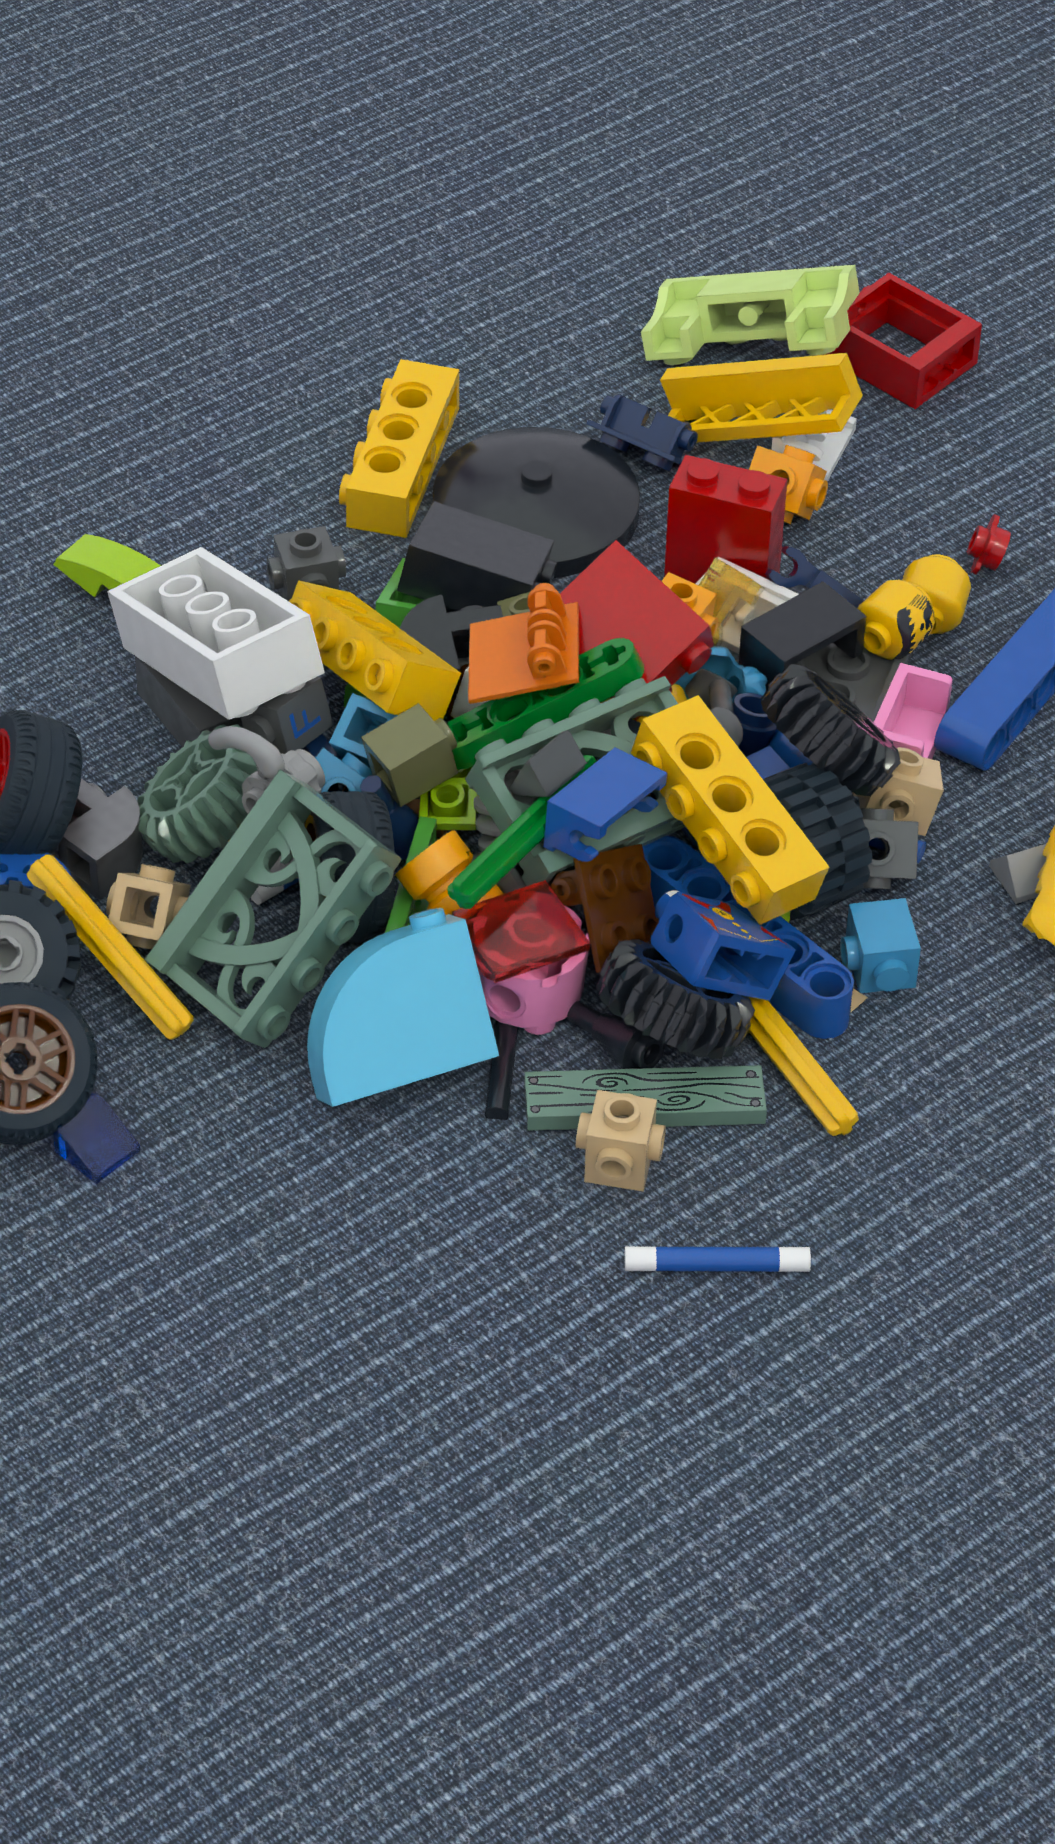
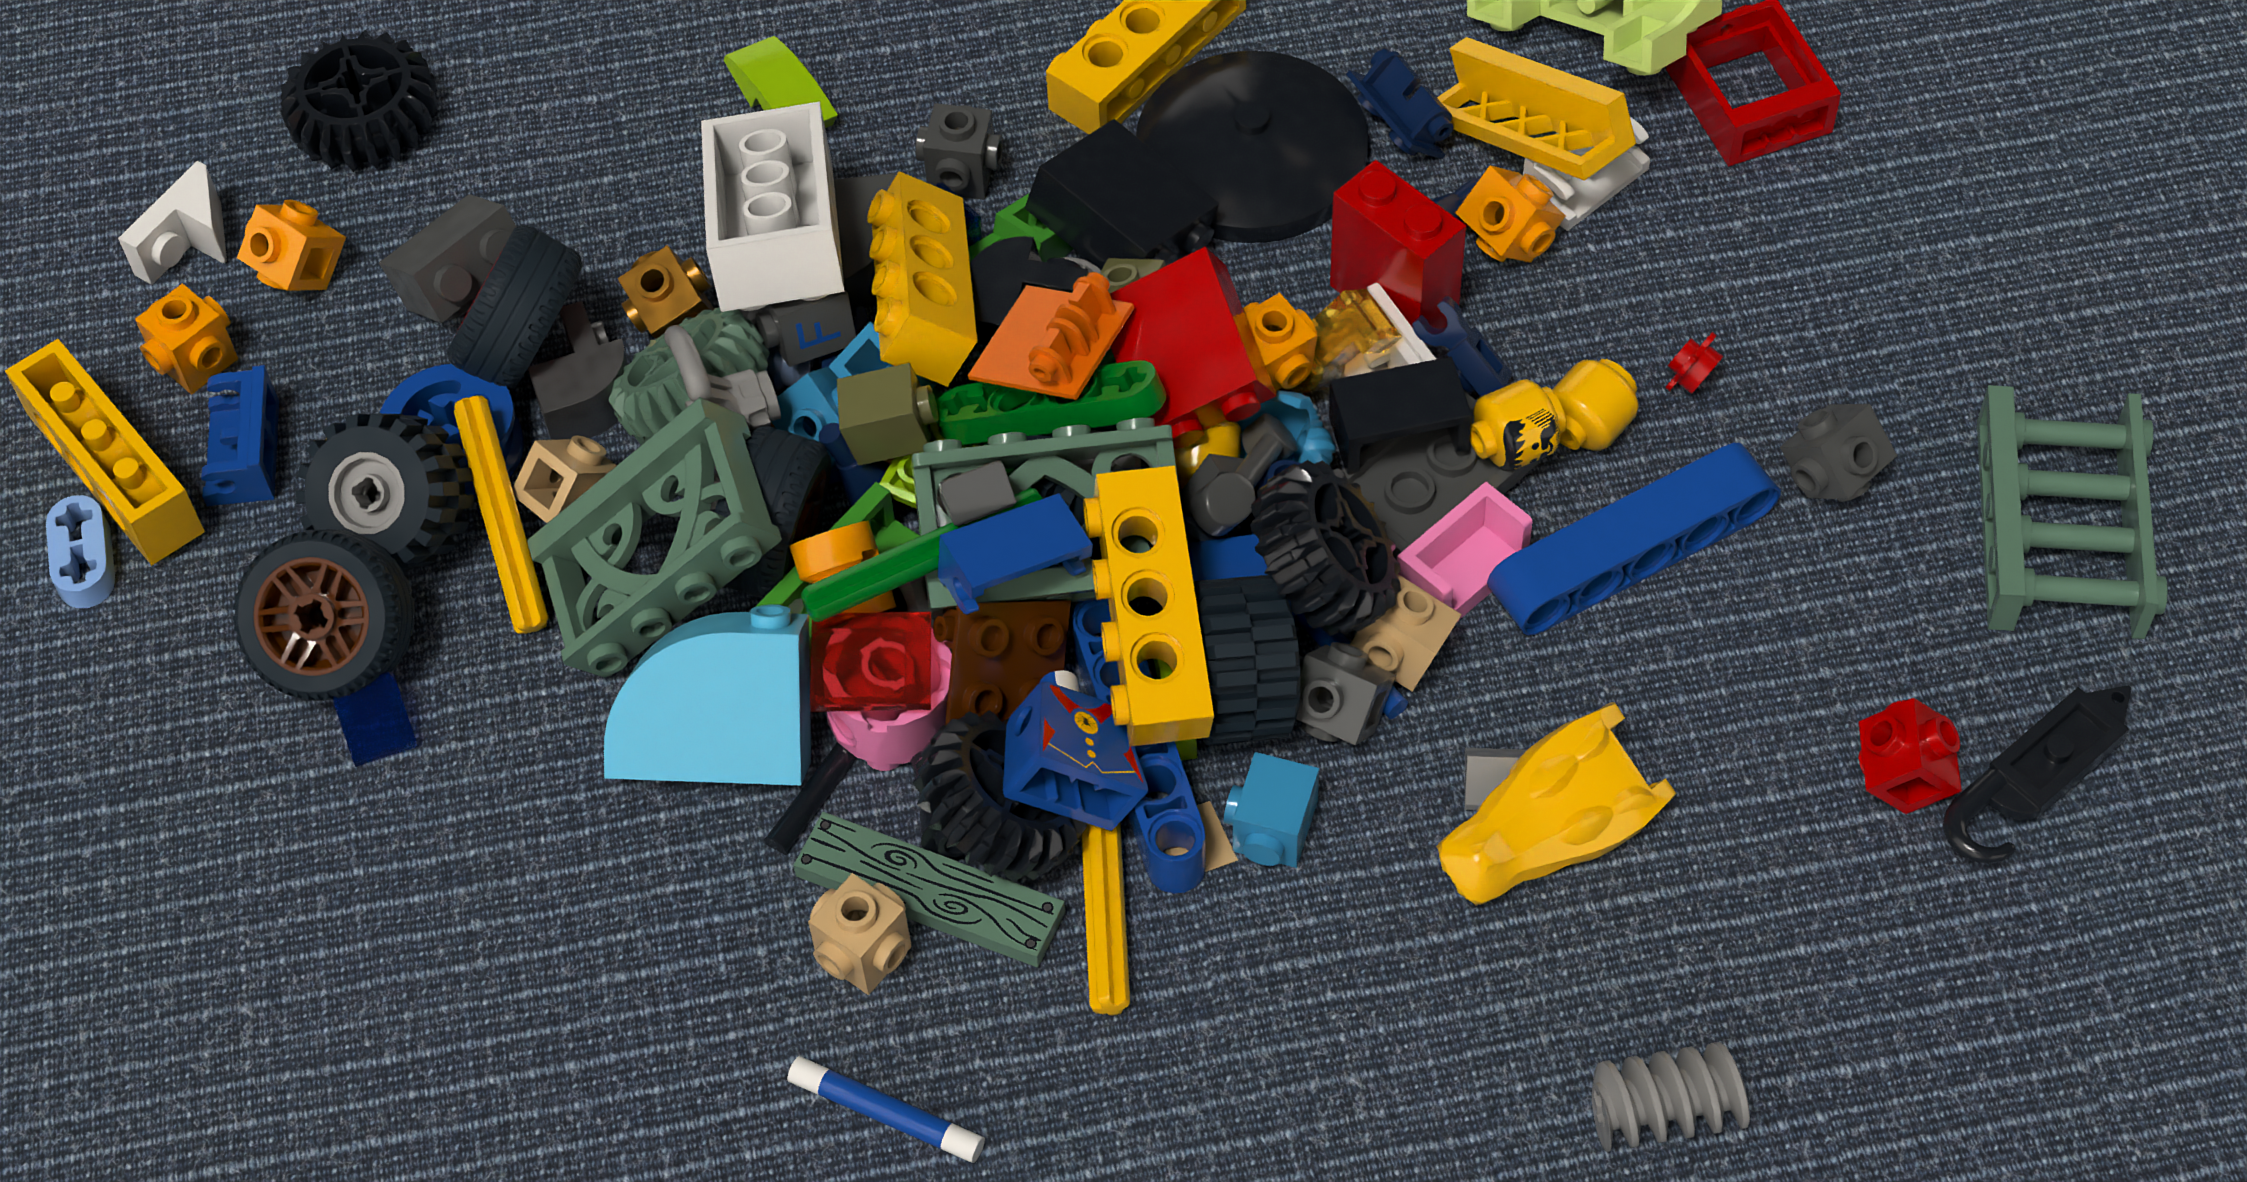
camera: 30 degrees right, 10 degrees up
(133, 745) = (664, 291): none -> pearl gold brick

